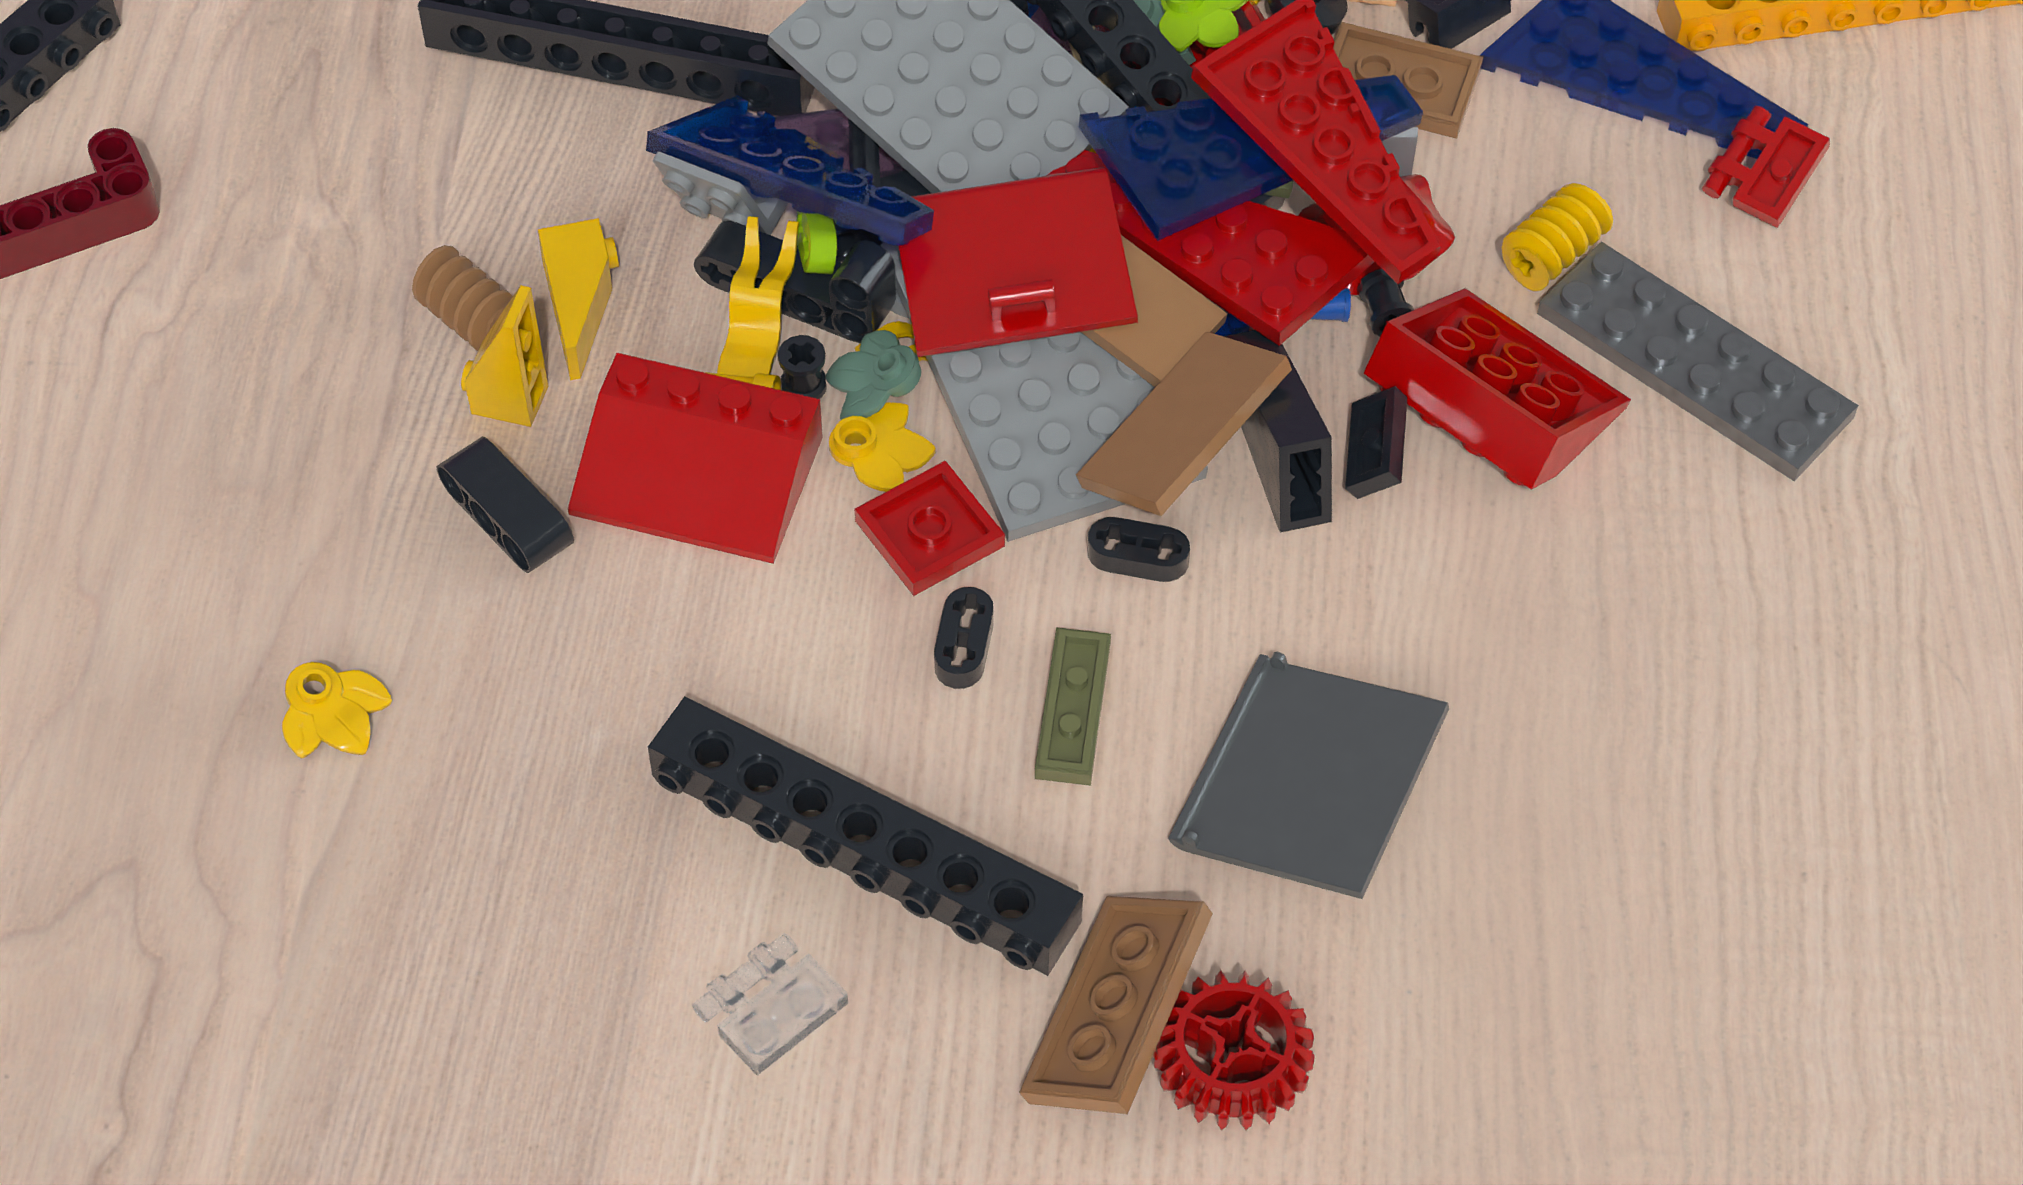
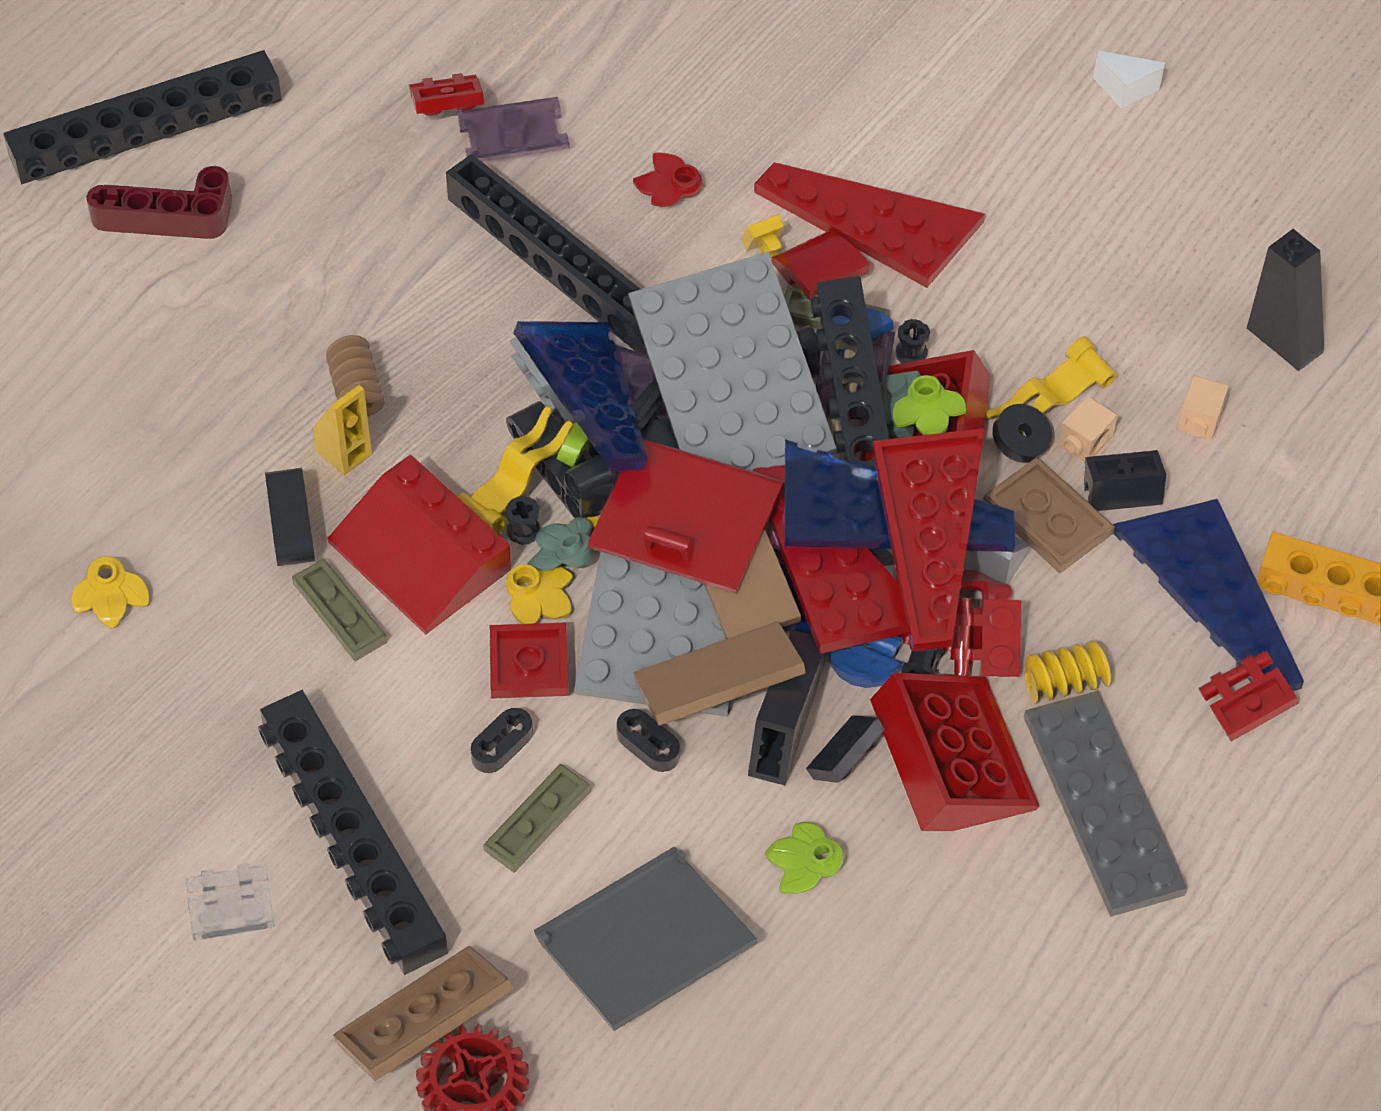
camera: 30 degrees right, 0 degrees up
(579, 284) = (426, 401): yellow slope -> none
(646, 585) = (339, 609): none -> olive tile
(1325, 343) = (863, 666): none -> blue tile
(1416, 593) = (799, 858): none -> lime plate
(1464, 240) = (998, 638): none -> red plate

